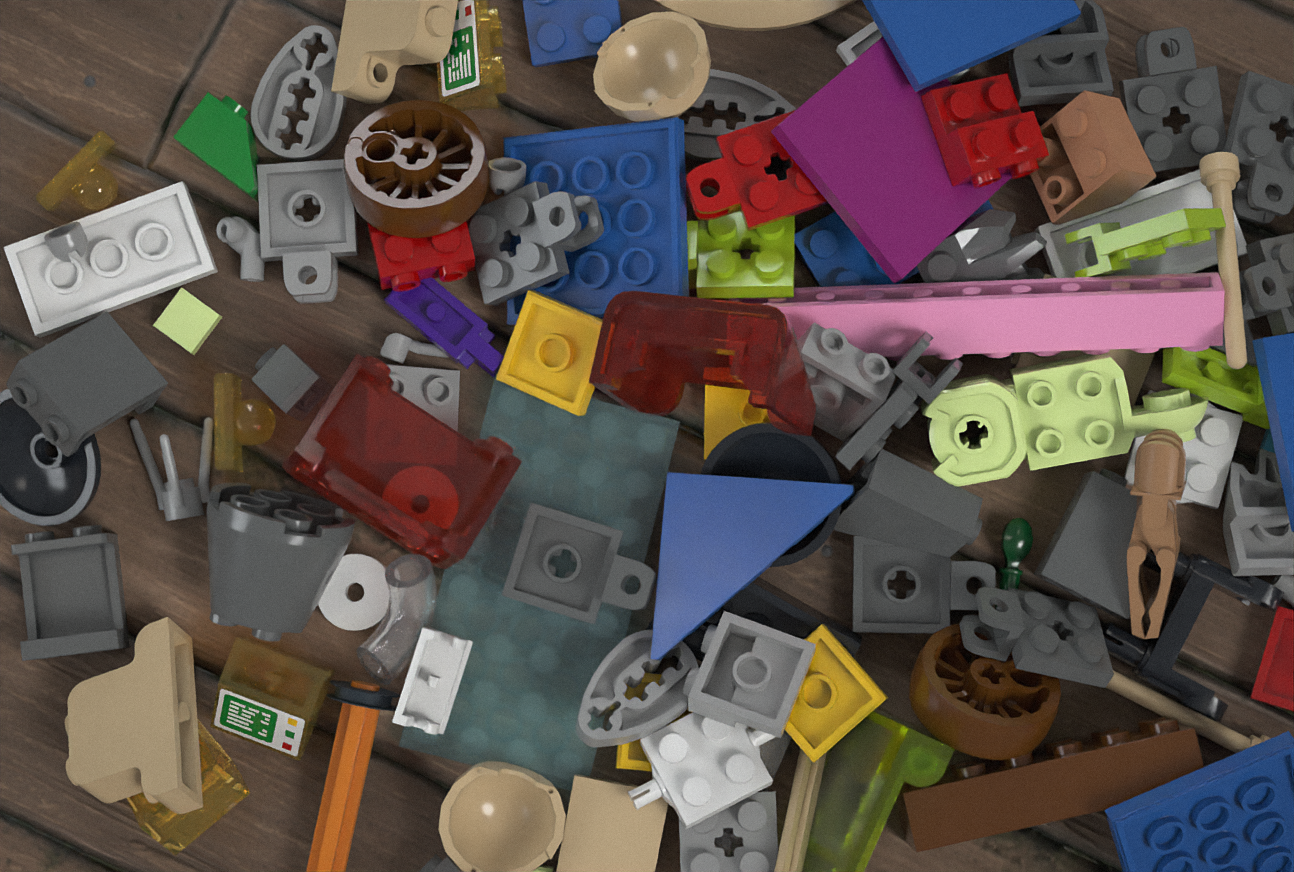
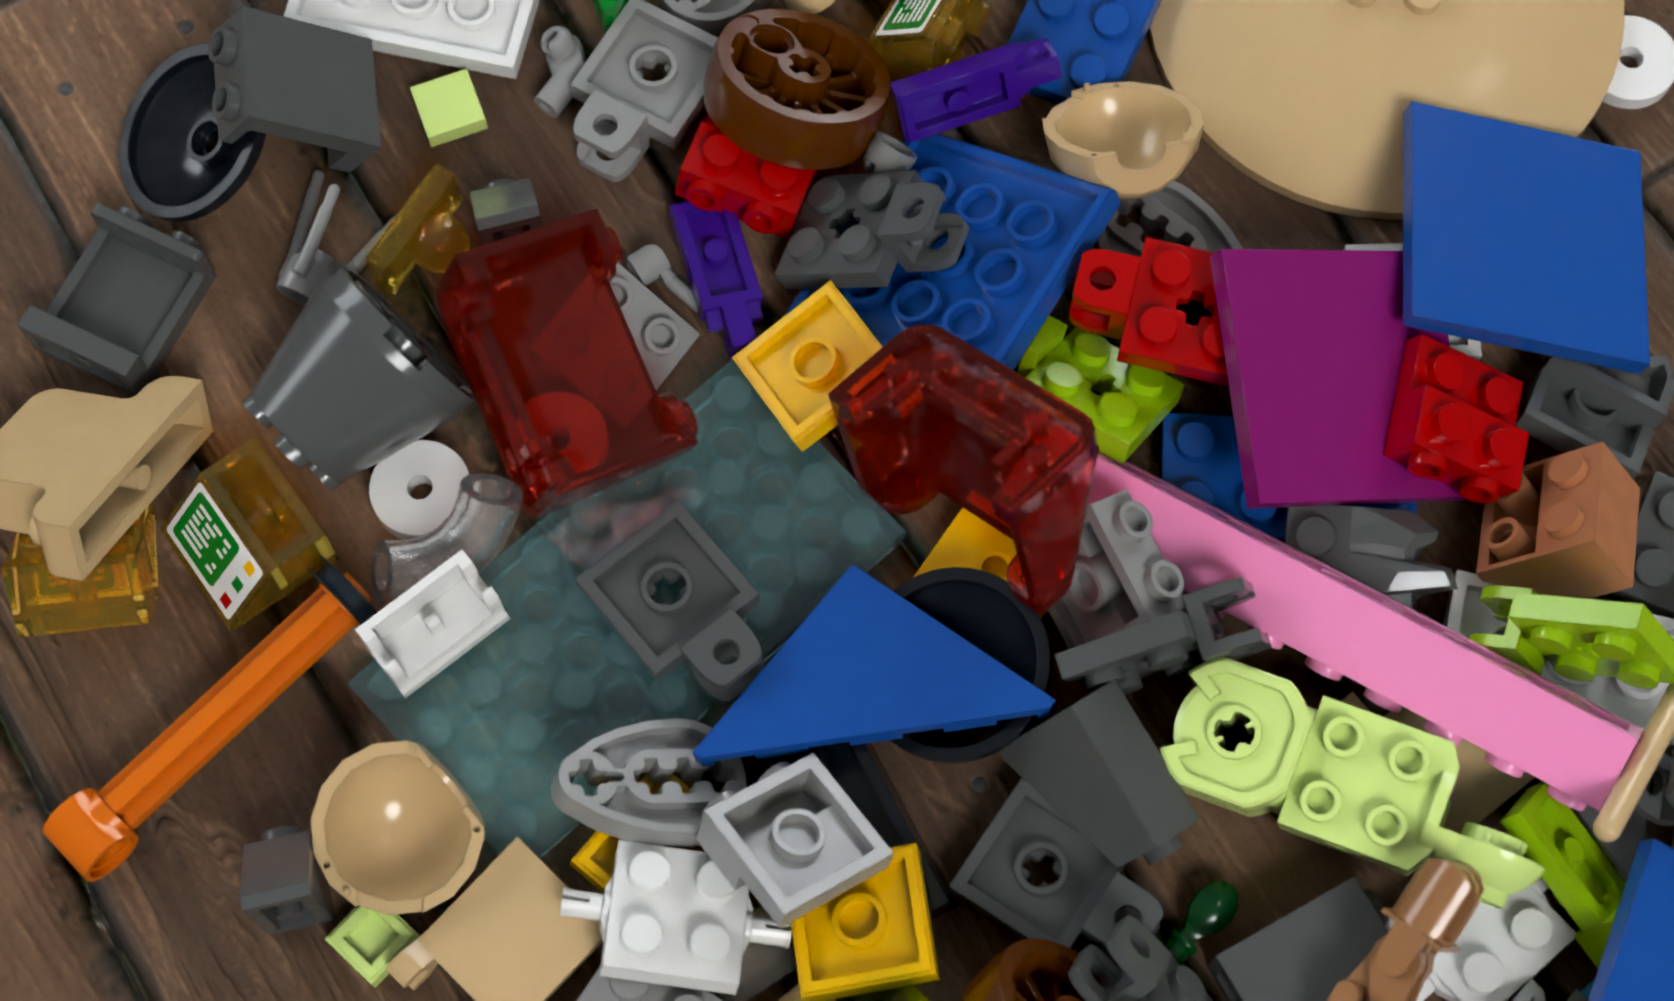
camera: 30 degrees right, 15 degrees down
(531, 91) = (972, 88): none -> dark purple hinge

